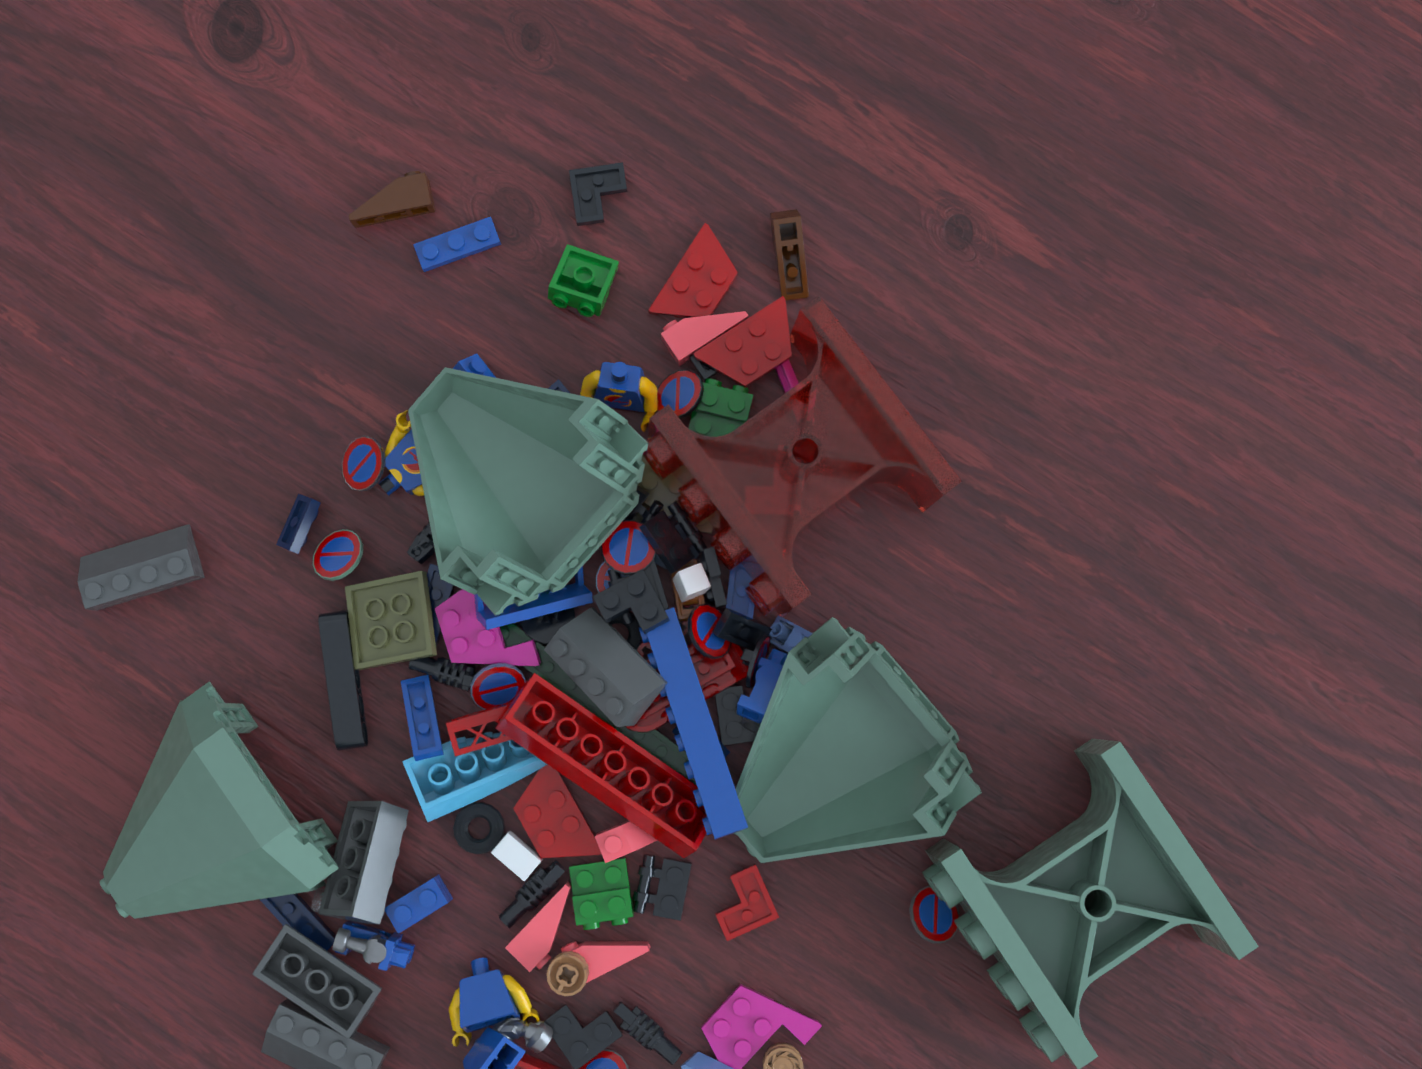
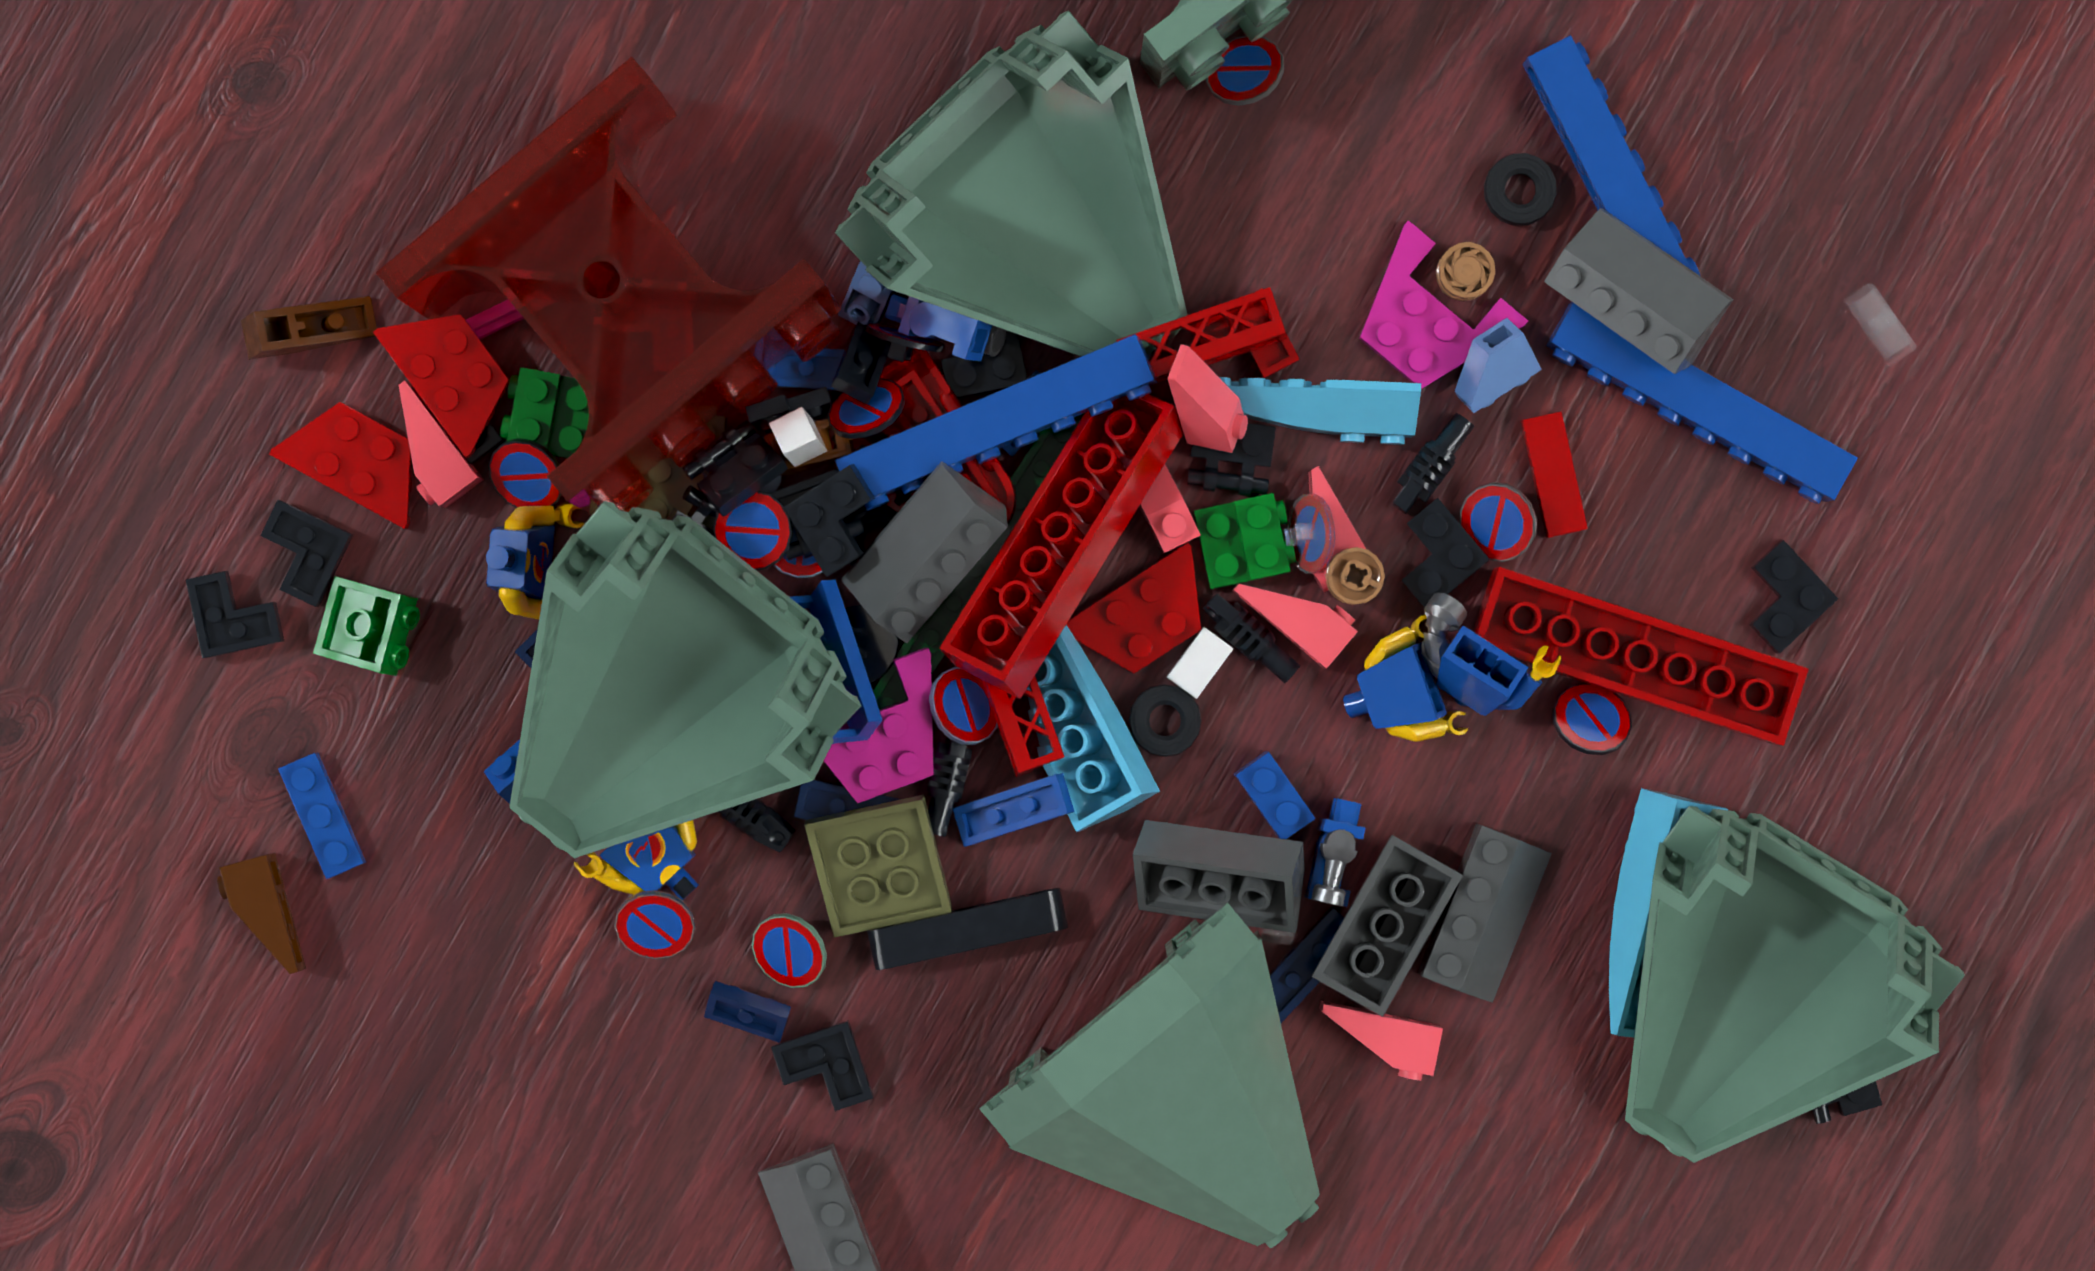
camera: 90 degrees left, 5 degrees up
(236, 985) = (1397, 1040): none -> coral slope
(265, 577) = (832, 1054): none -> black plate
(601, 943) = (1311, 533): none -> clear piece
(637, 251) = (317, 549): none -> black plate
(691, 956) = (1333, 407): none -> medium azure wedge
(696, 873) = (1205, 404): none -> coral slope
(736, 883) = (1221, 348): none -> red fence

